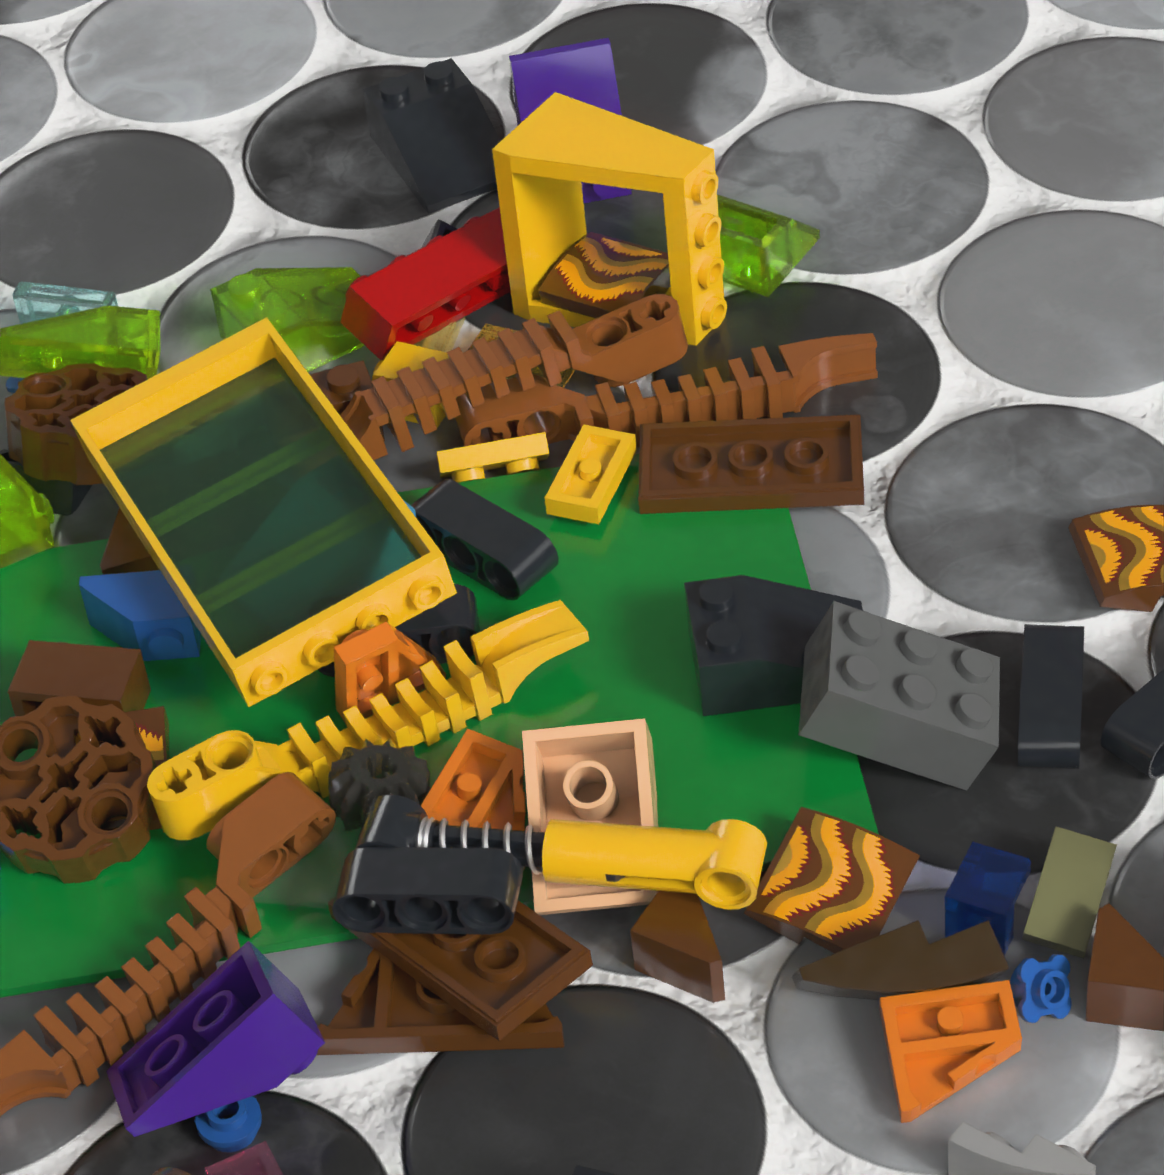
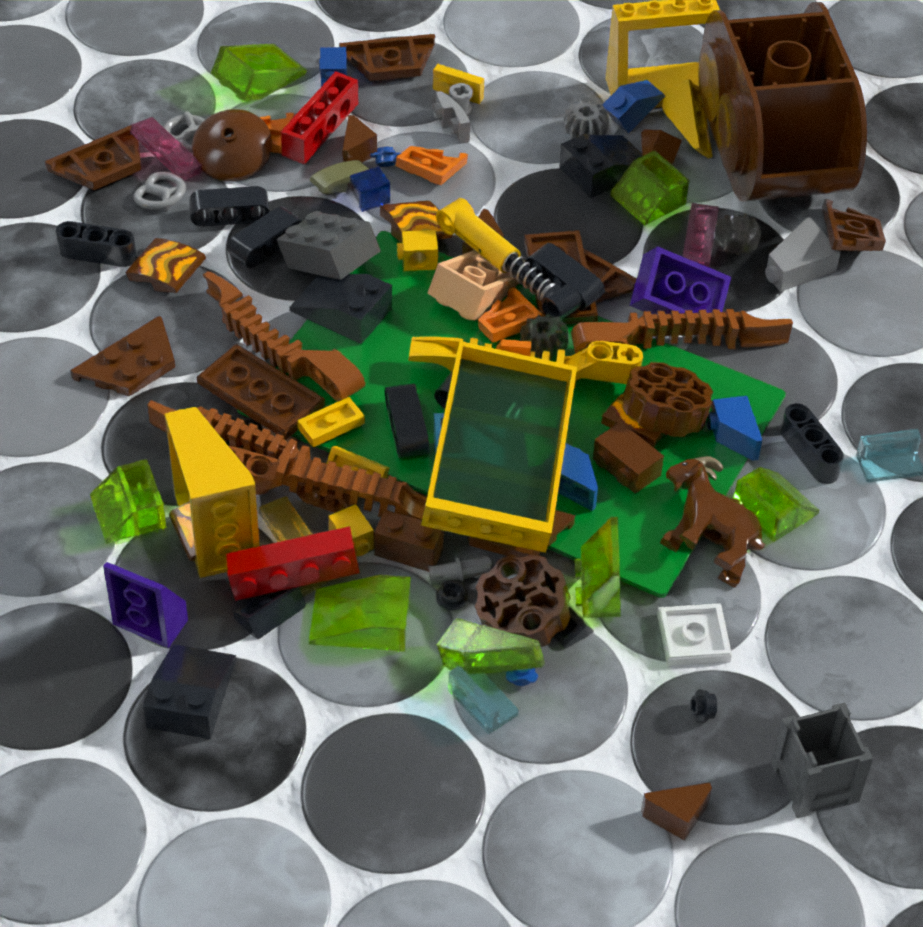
camera: 150 degrees left, 5 degrees up
(672, 519) = (326, 368): none -> dark orange piece
(753, 794) = (418, 250): none -> yellow brick
(906, 964) = (424, 181): dark brown slope -> none
(1002, 412) = (130, 361): none -> reddish brown wing

